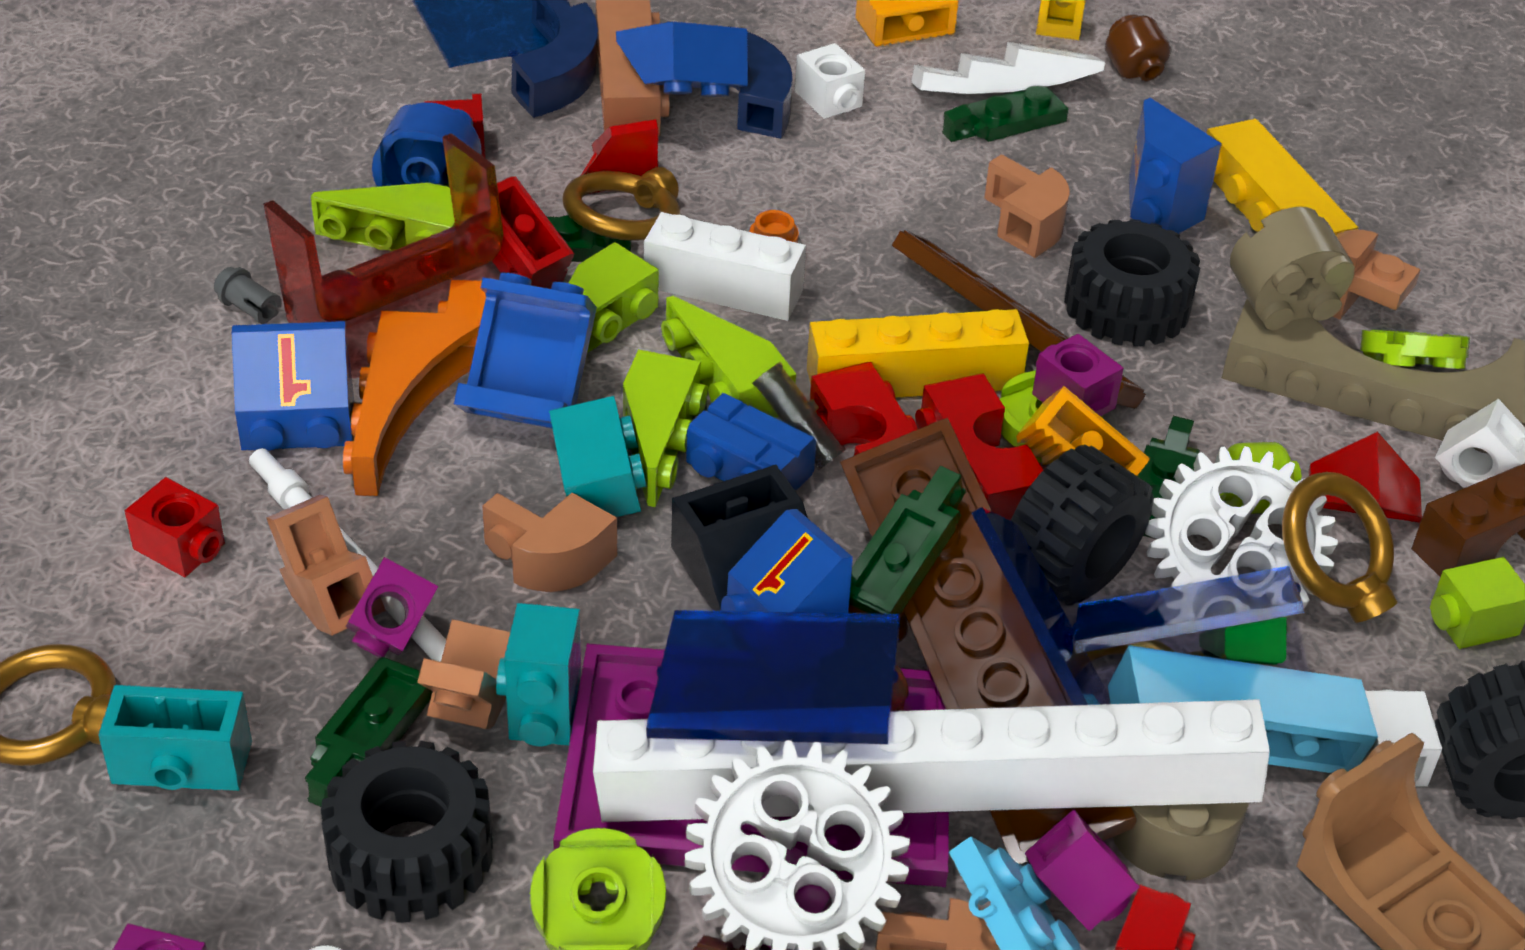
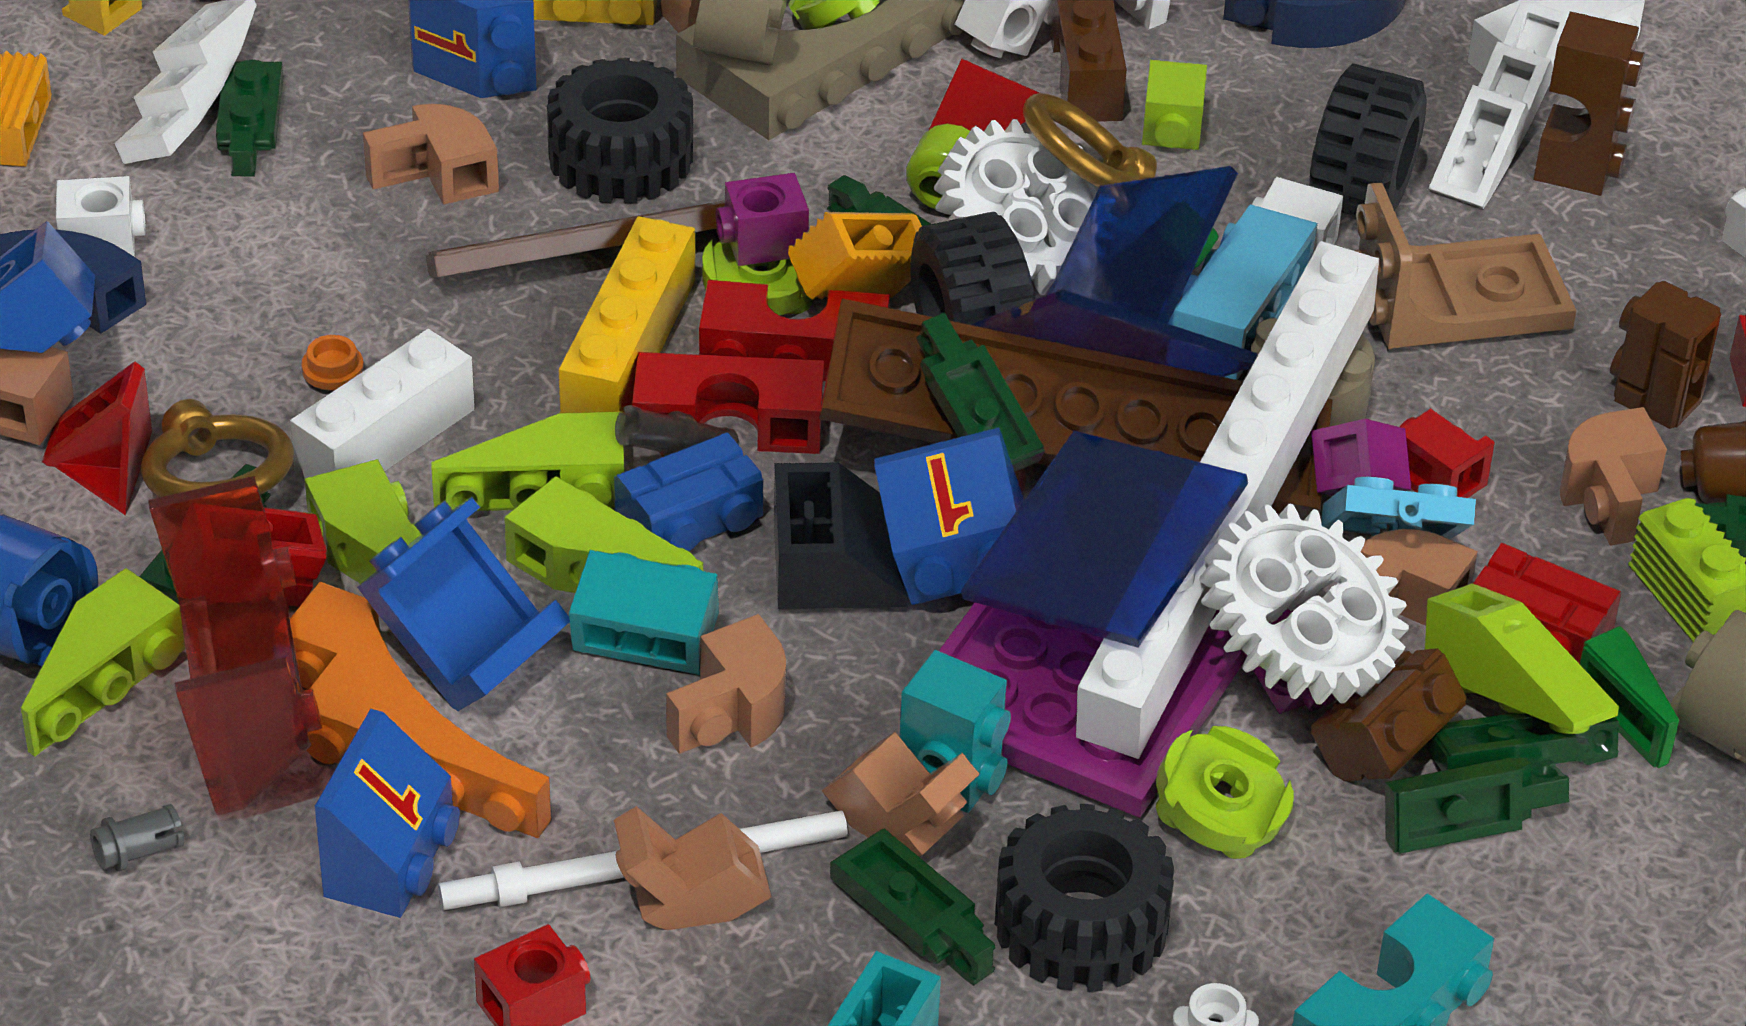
camera: 65 degrees left, 0 degrees up
(406, 587) = (791, 823): magenta brick -> none

